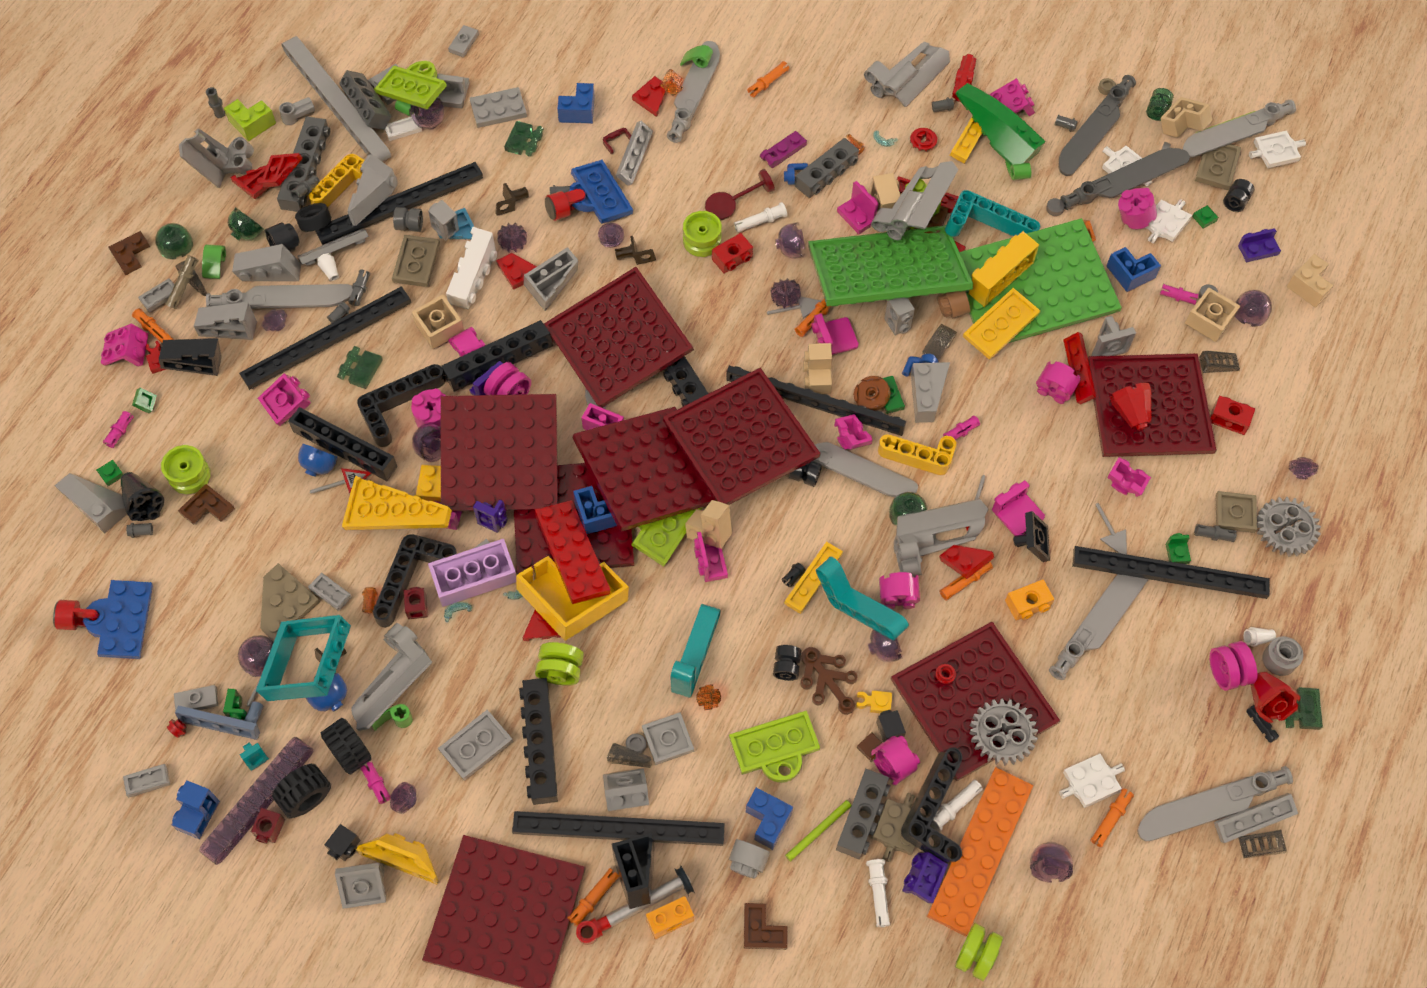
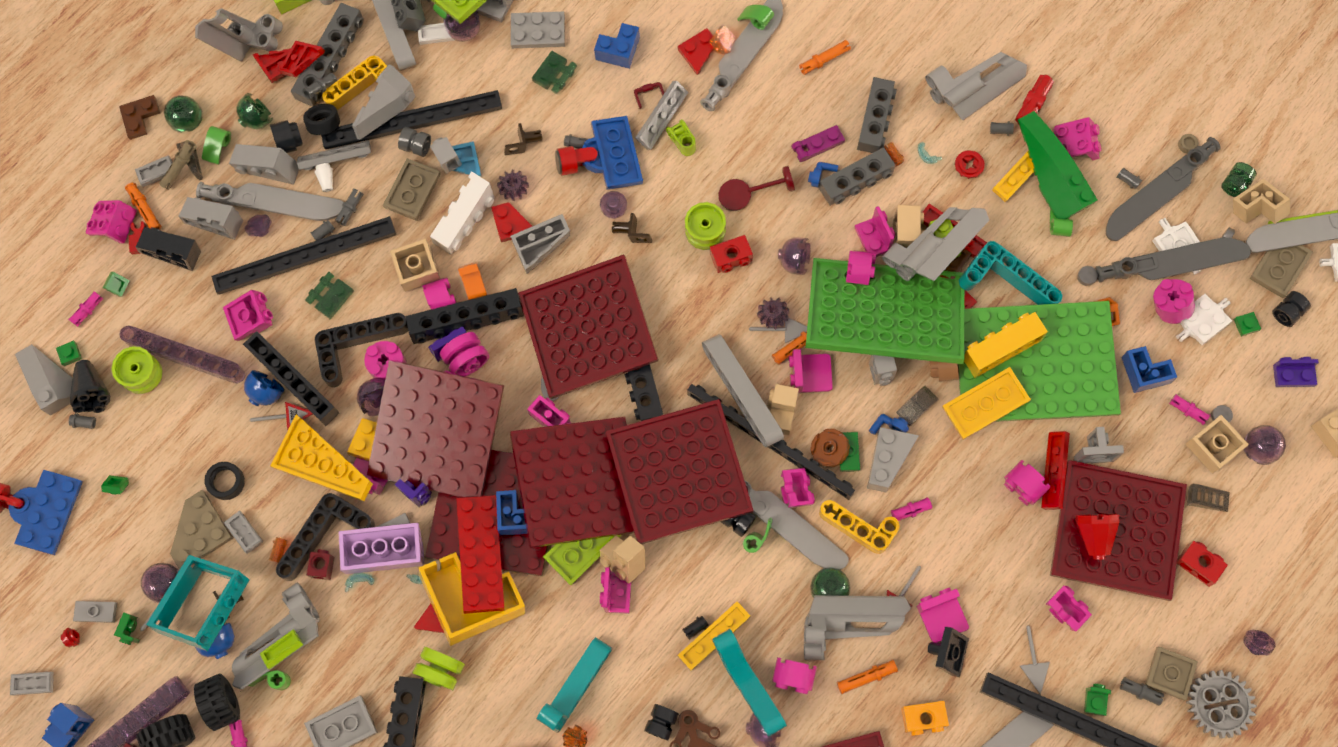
camera: 20 degrees right, 10 degrees up
(188, 578) = (114, 485): none -> green plate
(206, 500) = (149, 406): reddish brown plate -> none
(235, 451) = (189, 359): none -> beam
(243, 728) = (133, 654): sand blue piece -> none
(253, 755) = (133, 684): teal tile -> none
(292, 538) = (214, 470): none -> black tyre
(398, 682) = (281, 649): none -> lime tile
(495, 322) = (472, 281): none -> orange tile
(659, 168) = (681, 135): none -> lime piece
(768, 215) = (780, 218): white pin -> none
(778, 360) = (742, 391): none -> light grey beam
(829, 115) = (880, 89): none -> dark grey brick
(833, 484) = (758, 537): none -> bright green panel
(854, 237) = (860, 267): none -> dark pink cylinder
(965, 559) = (872, 657): red wing -> none

